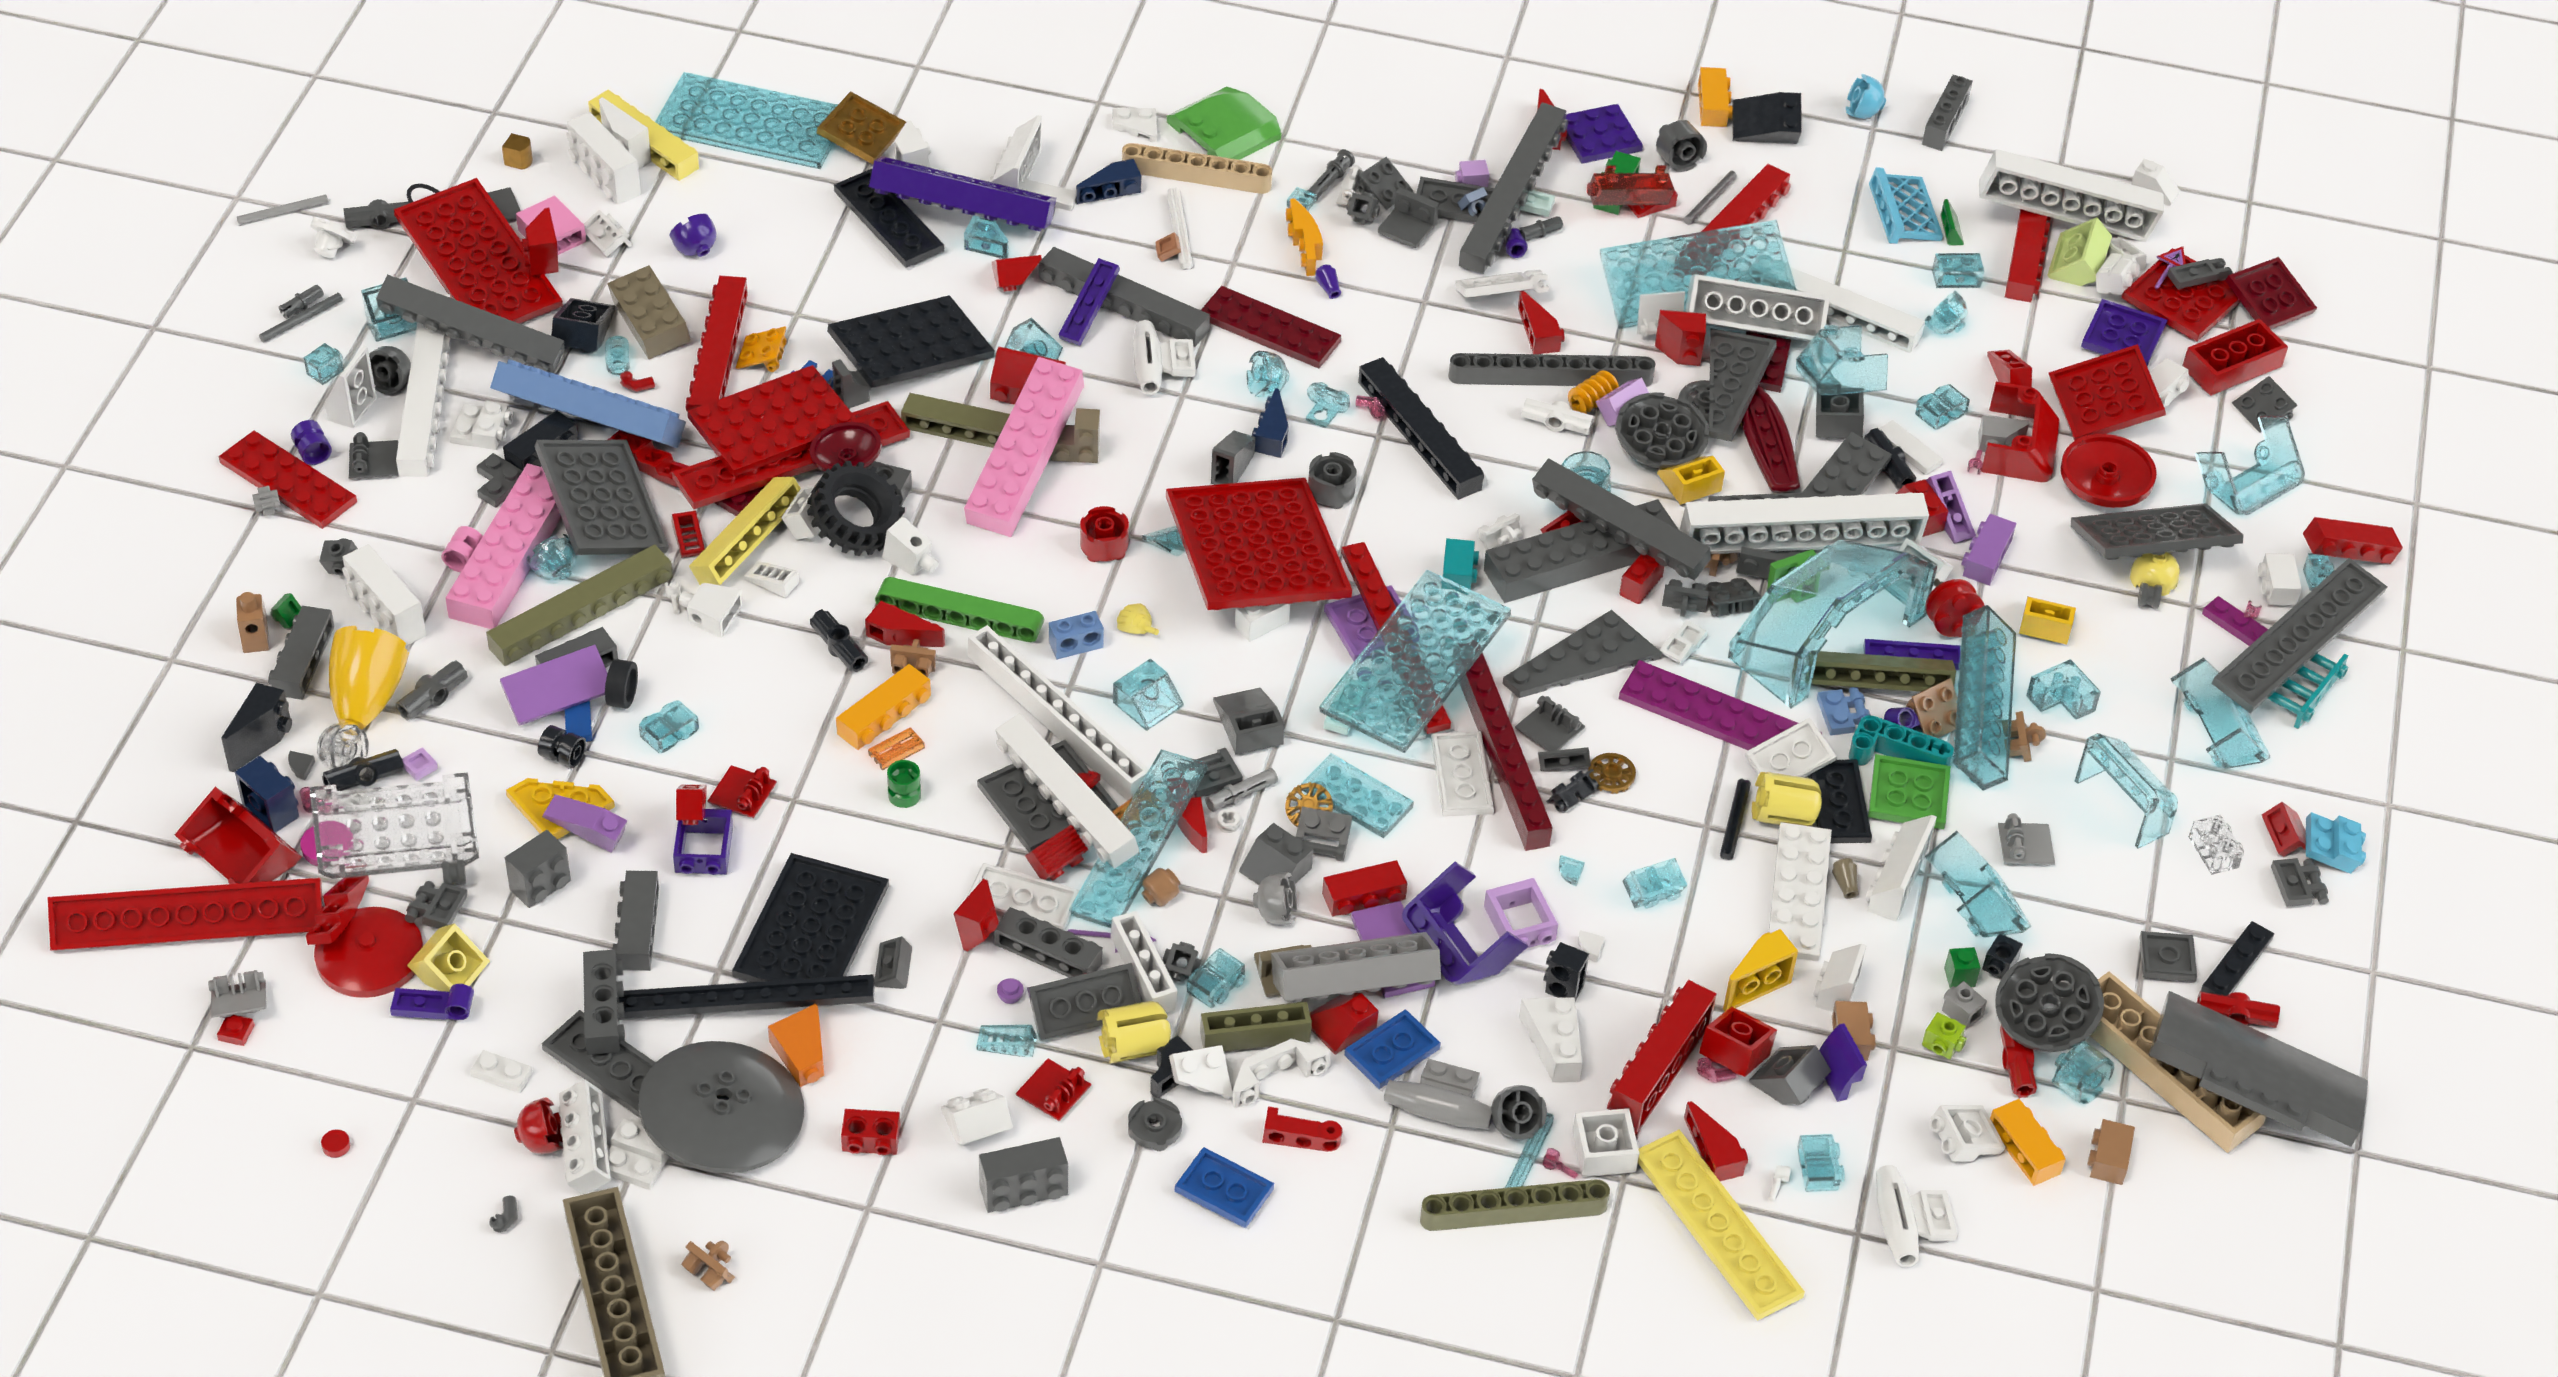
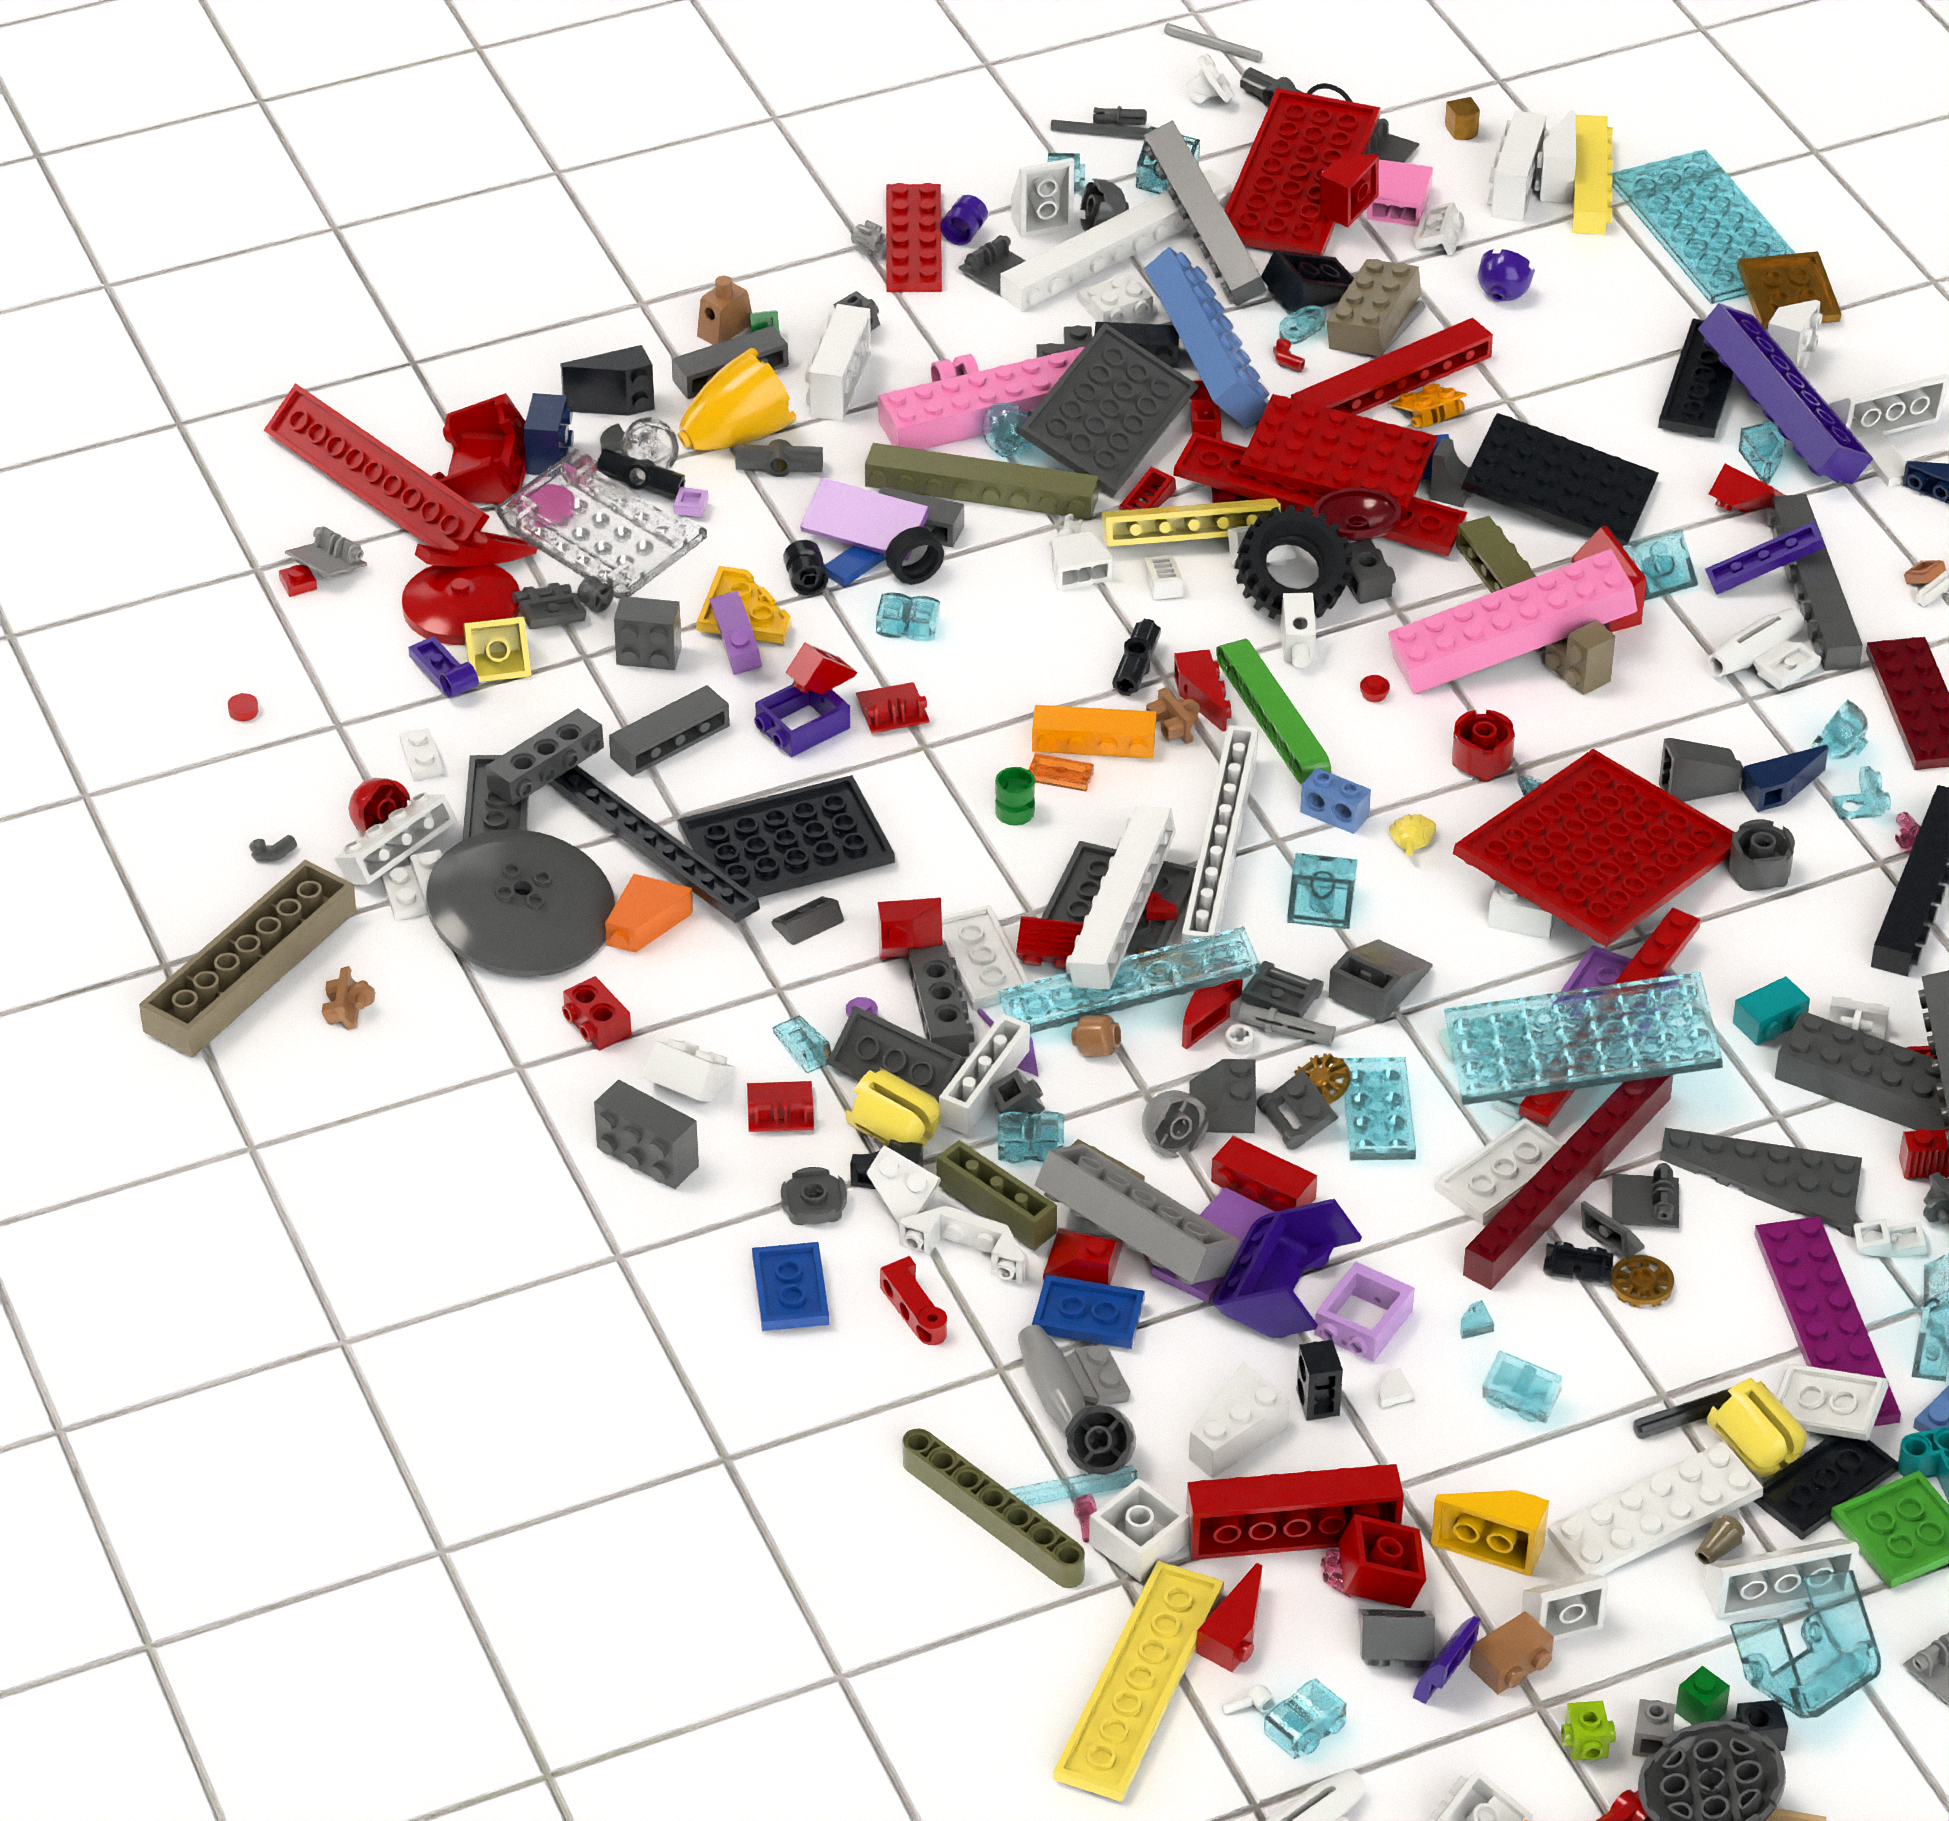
camera: 55 degrees right, 5 degrees down
(989, 550) = (1374, 688): none -> red plate

